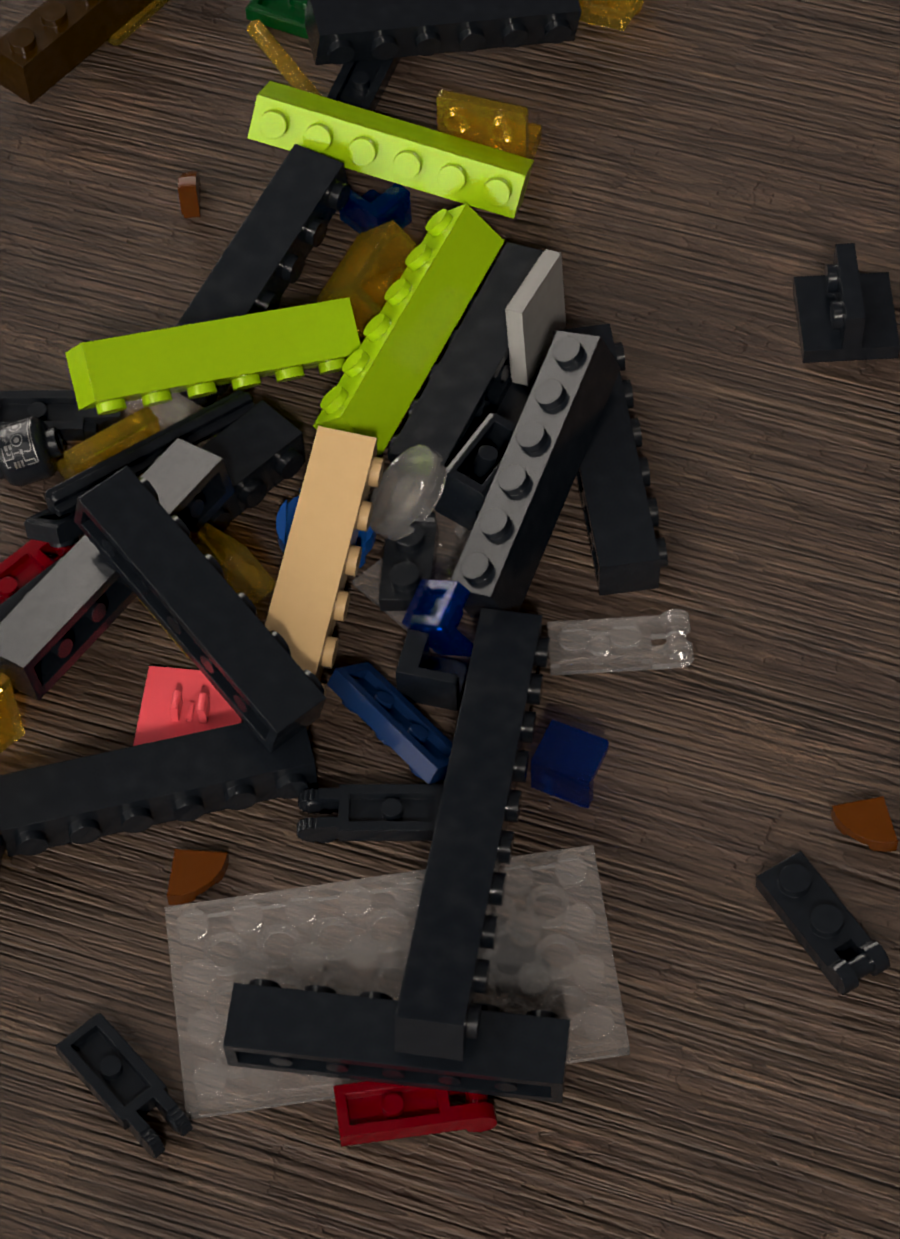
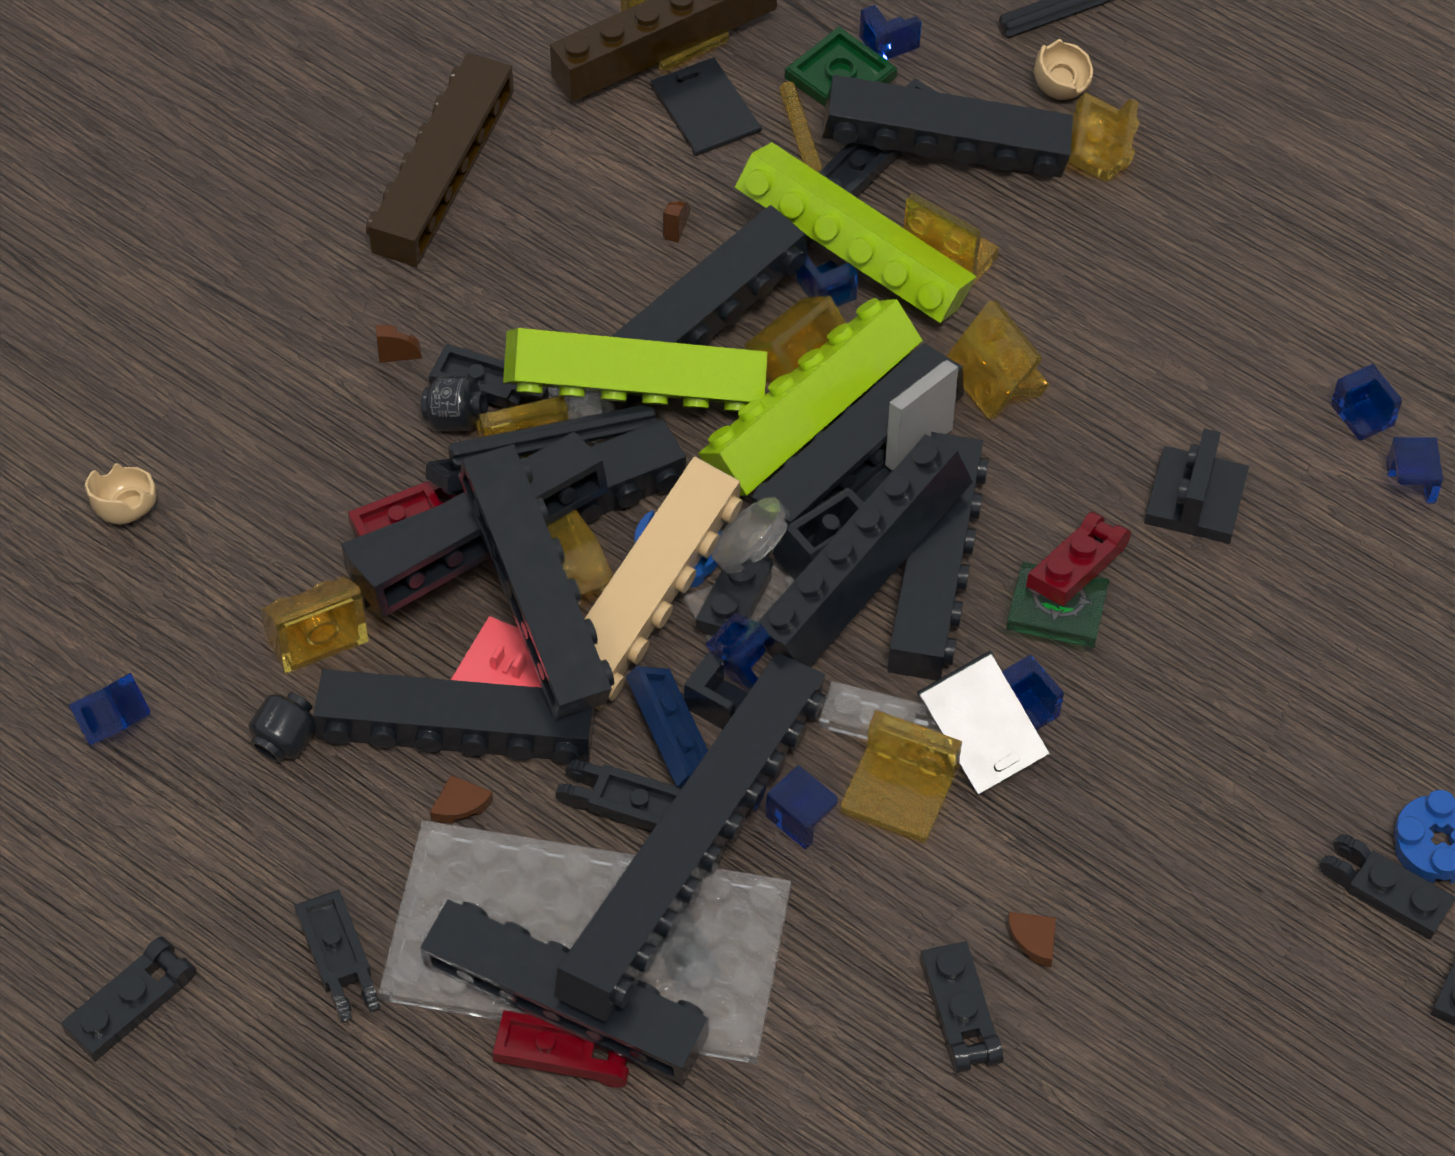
camera: 15 degrees right, 0 degrees up
(174, 70) = (705, 106): none -> black container
(592, 237) = (997, 361): none -> clear yellow bracket
(663, 698) = (902, 776): none -> clear yellow bracket
(727, 615) = (989, 720): none -> container
(752, 471) = (1072, 623): none -> clear green slope
(754, 418) = (1078, 559): none -> dark red plate
(759, 574) = (1035, 691): none -> clear blue panel

